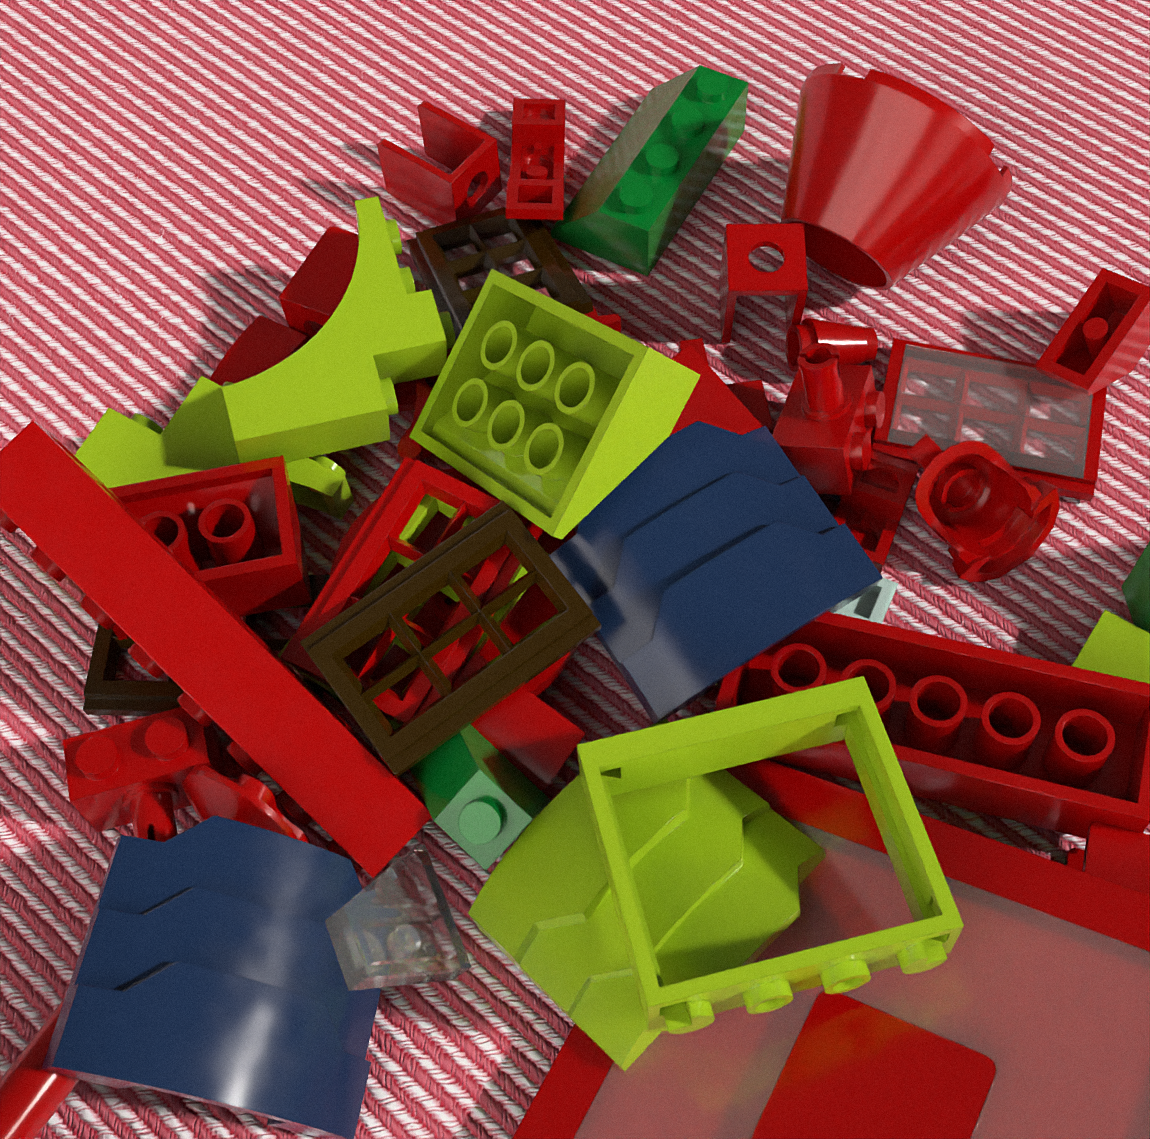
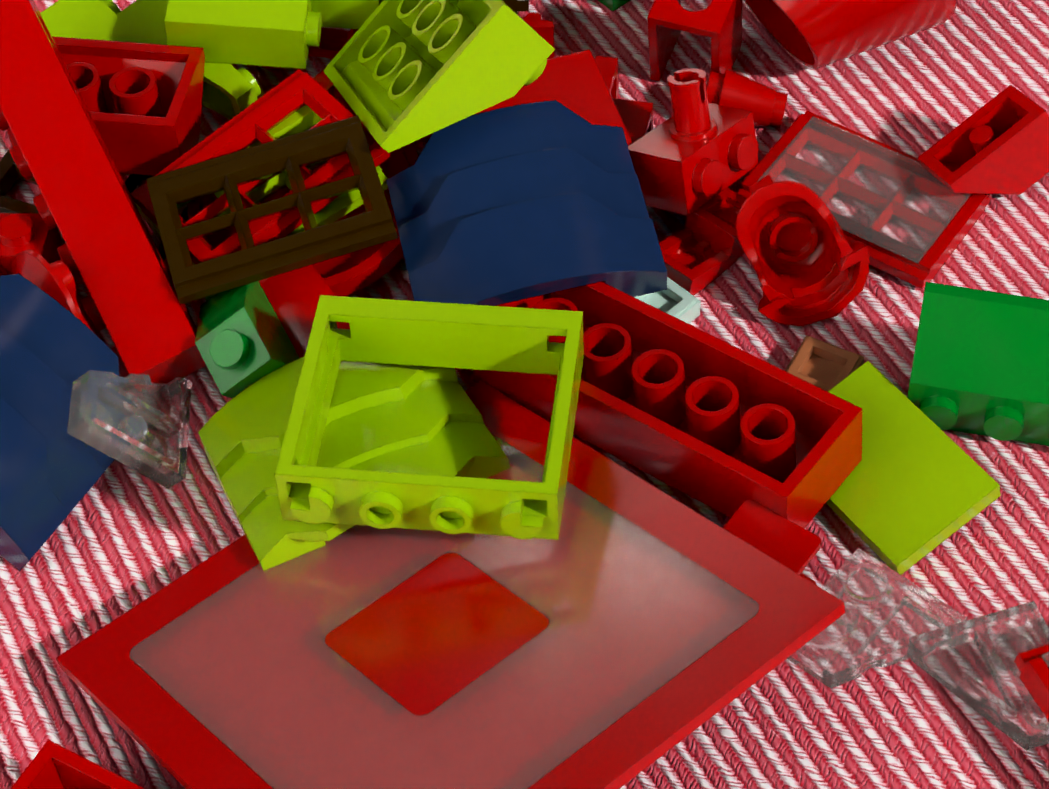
camera: 20 degrees right, 10 degrees down
(1047, 626) = (823, 363): none -> nougat tile

